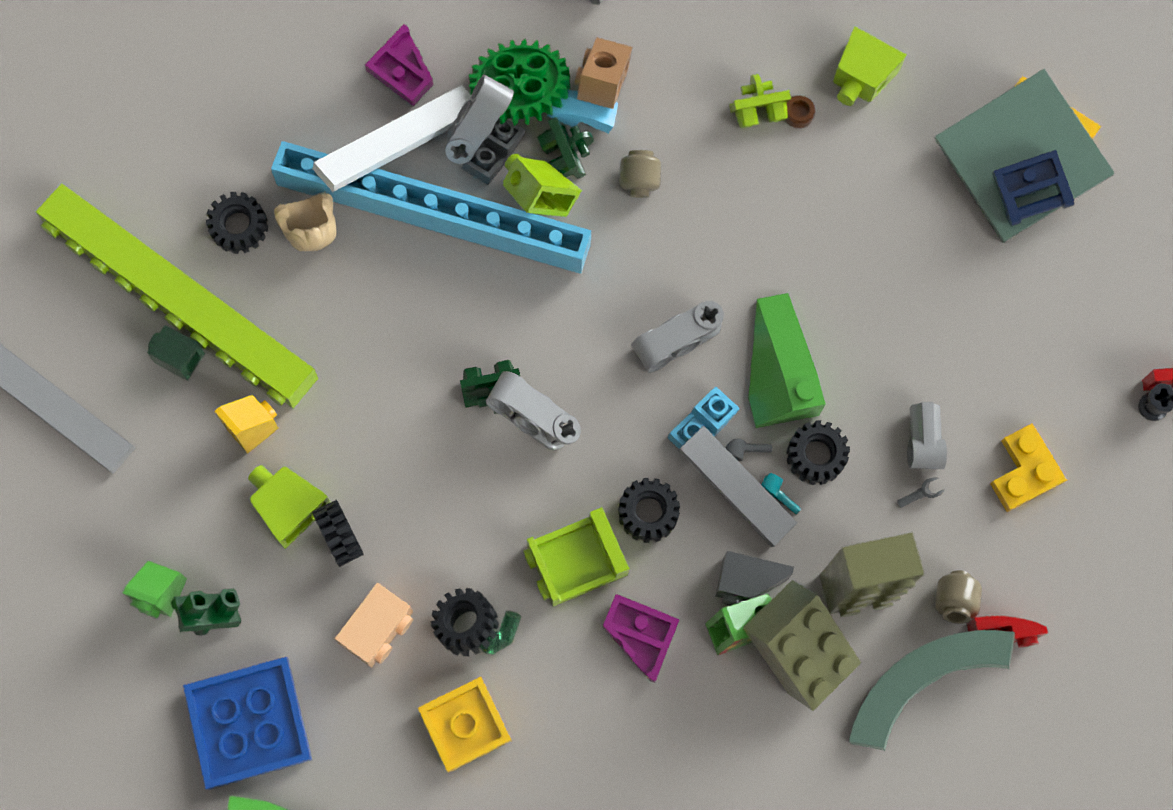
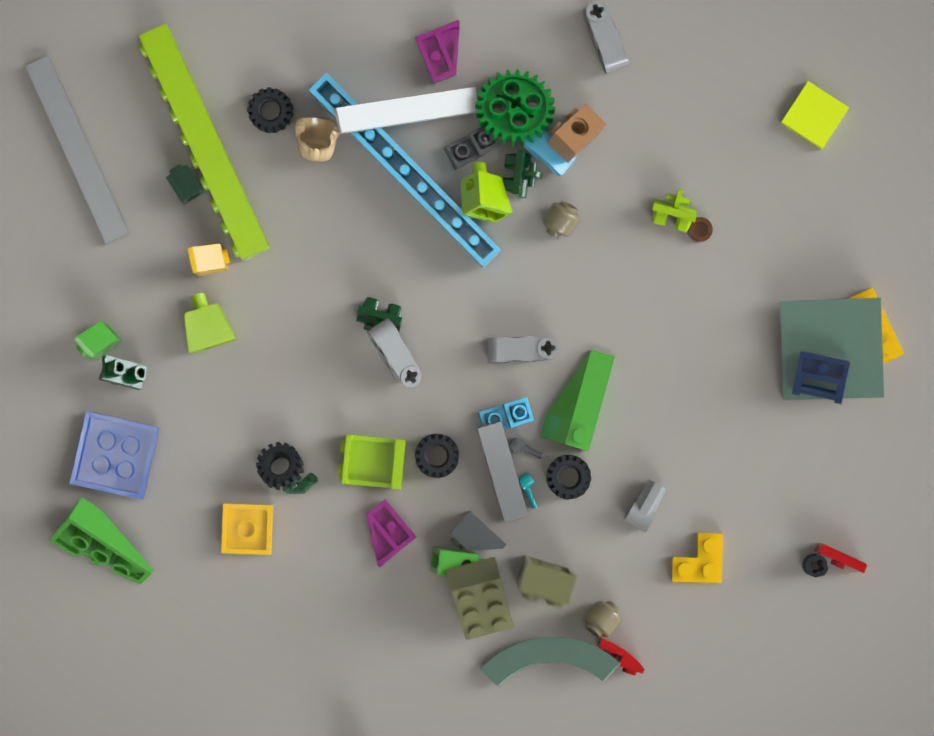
camera: 35 degrees right, 15 degrees up
(337, 533) = (228, 366): black tyre -> none
(375, 625) = (223, 437): light nougat brick -> none
(477, 119) = (466, 126): light grey piece -> none
(866, 67) = (763, 223): lime torso -> none
(920, 493) = (621, 539): dark grey hand -> none

